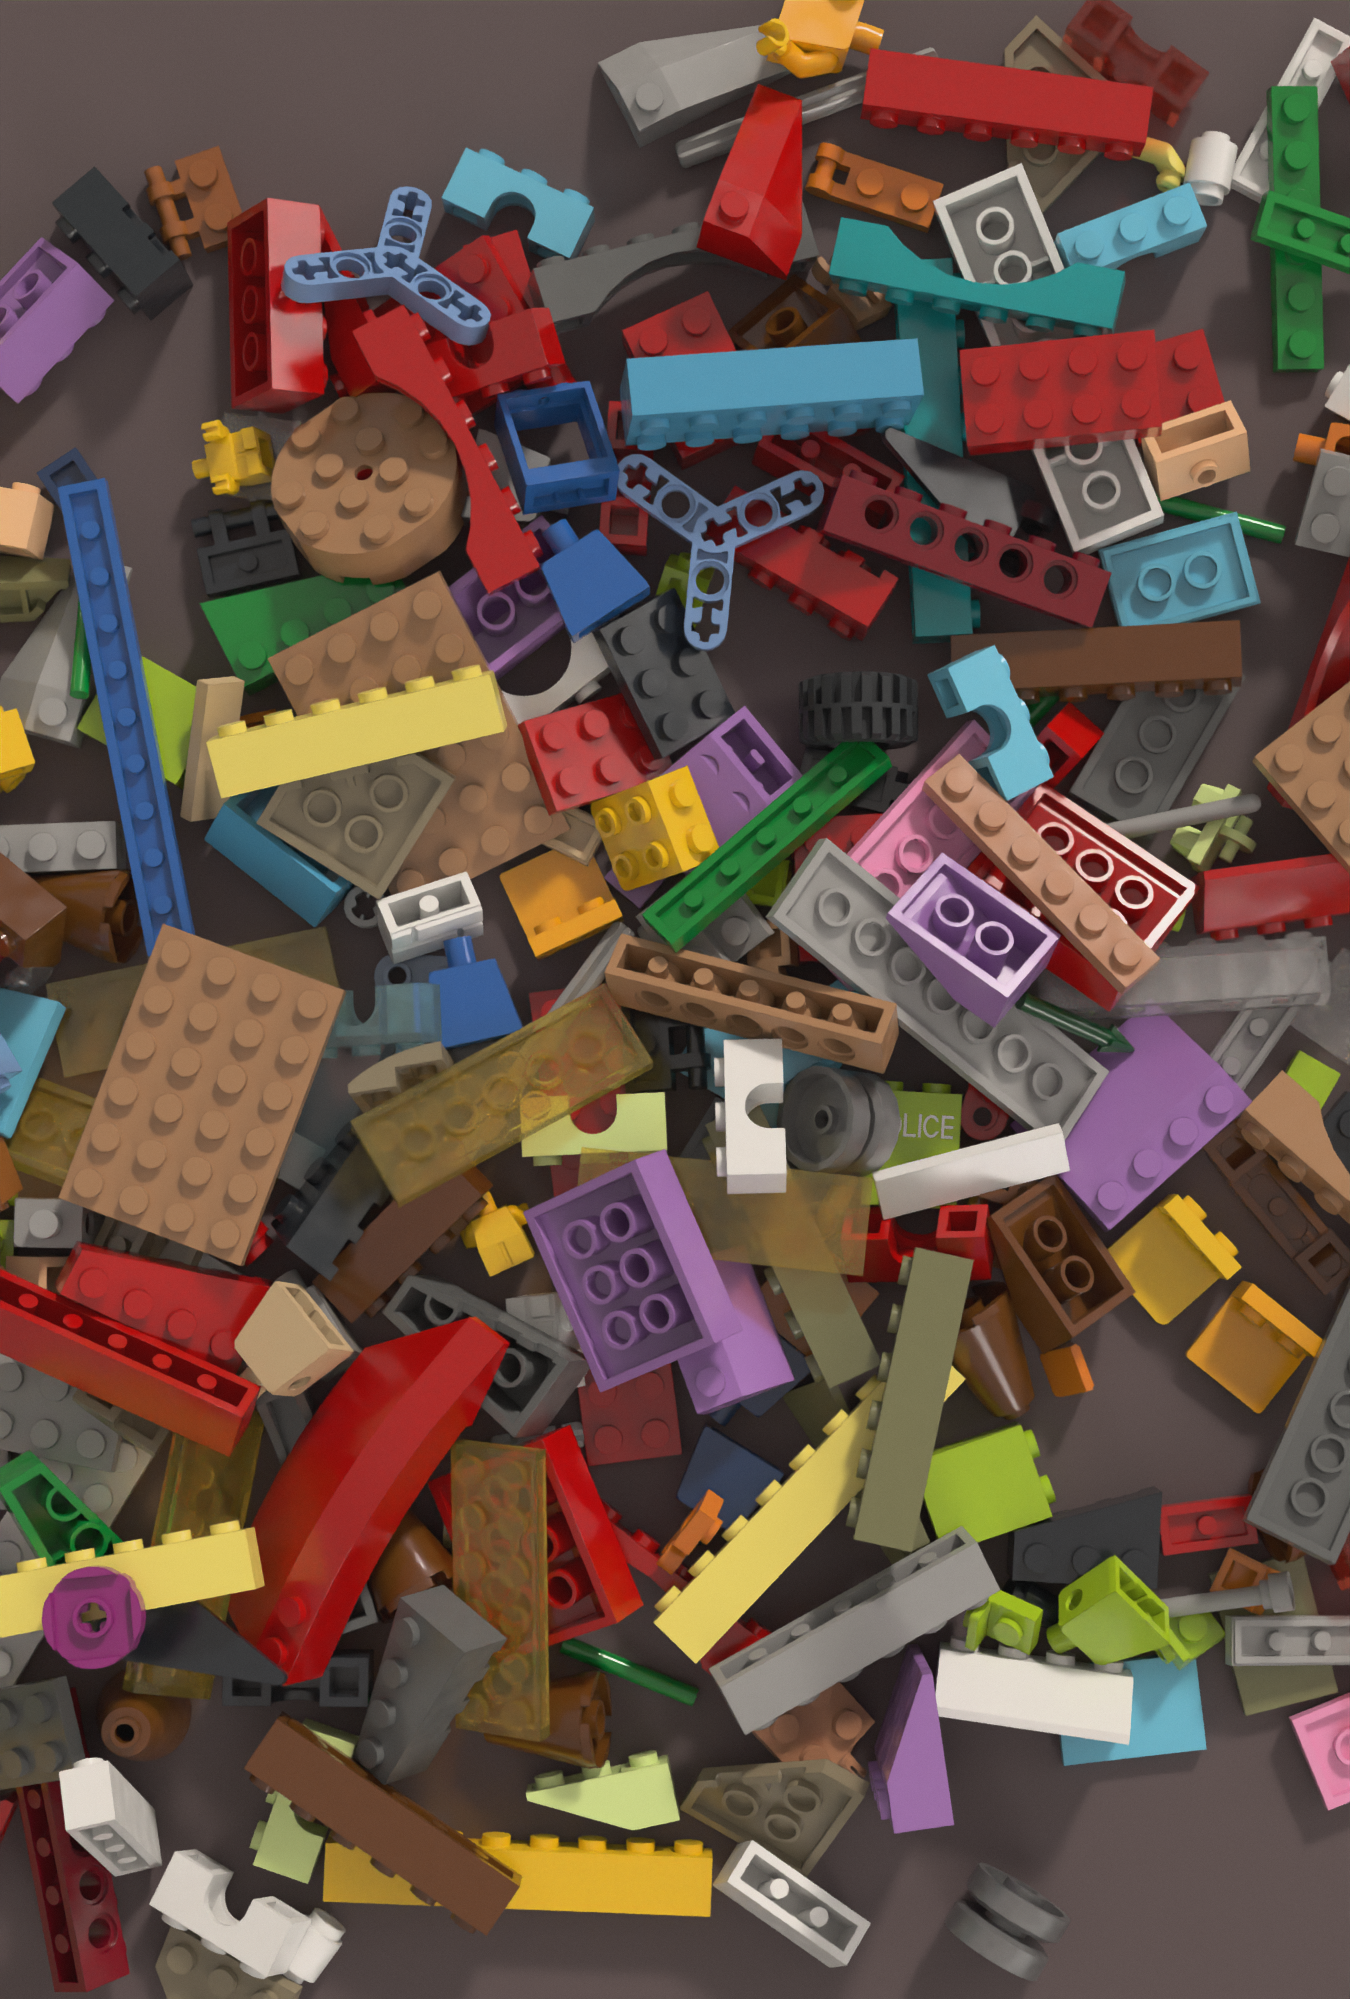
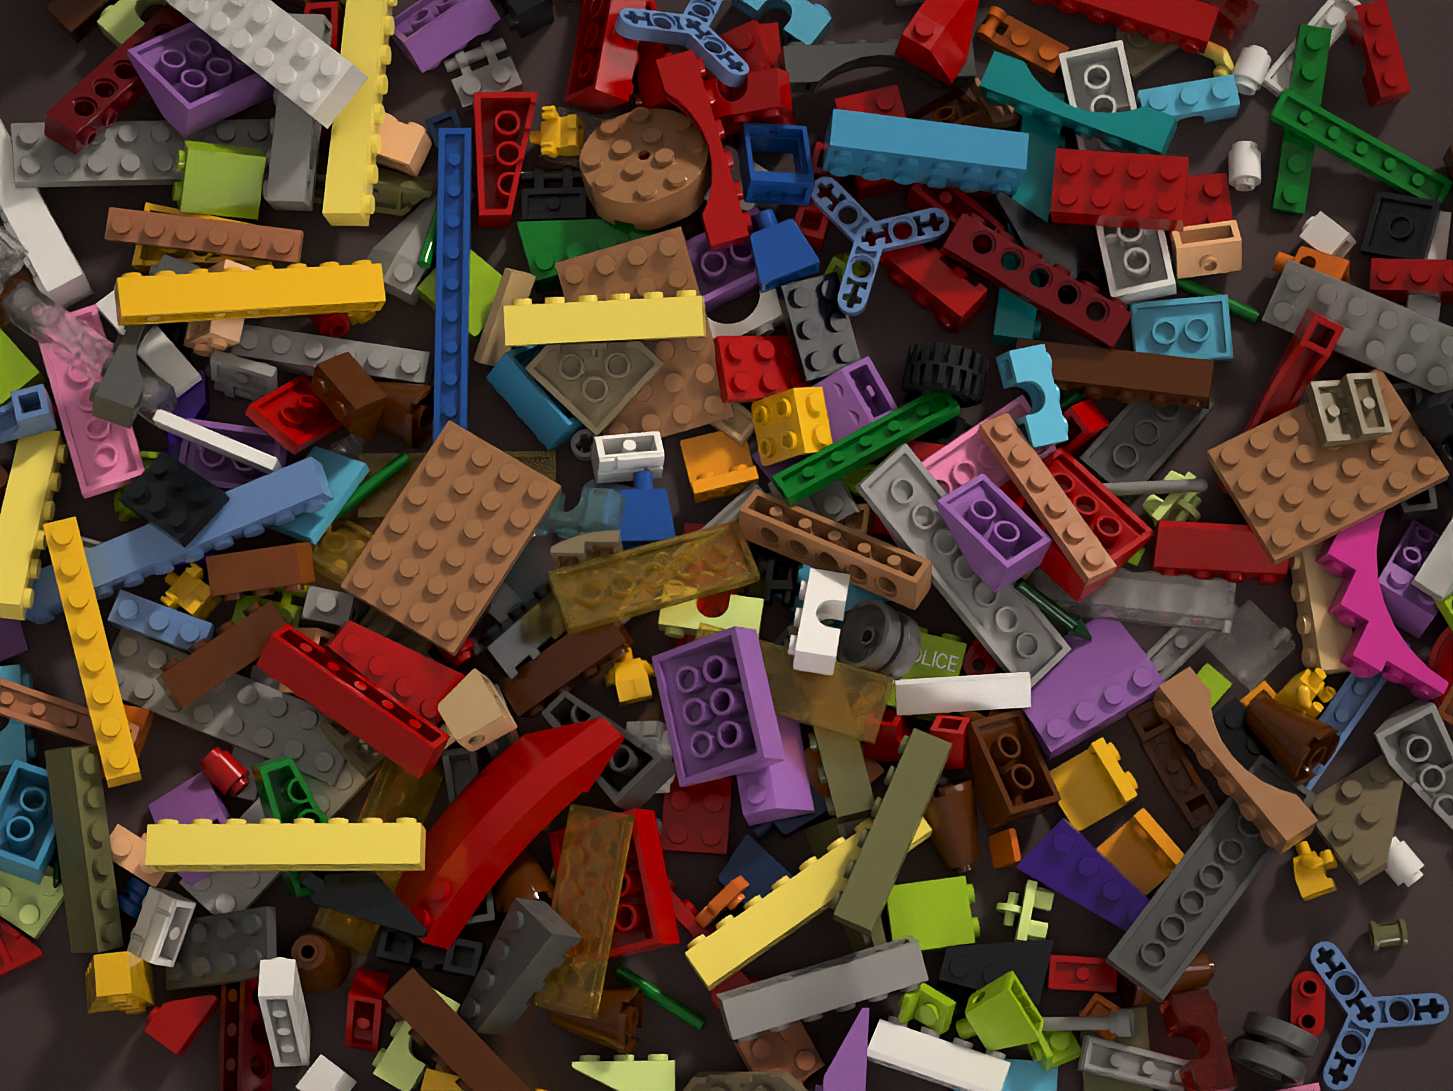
camera: 15 degrees right, 10 degrees down
(76, 1640) = (320, 874): magenta plate -> none
(77, 1024) = (374, 483): none -> green bar
(114, 397) = (495, 77): none -> light grey plate
(152, 488) = (499, 144): none -> red wedge
(220, 1762) = (366, 1009): none -> red slope
(1116, 1476) = (1032, 898): none -> yellowish green hips
(1188, 1391) = (1084, 875): none -> dark purple wedge
(1226, 314) = (1244, 166): none -> white brick

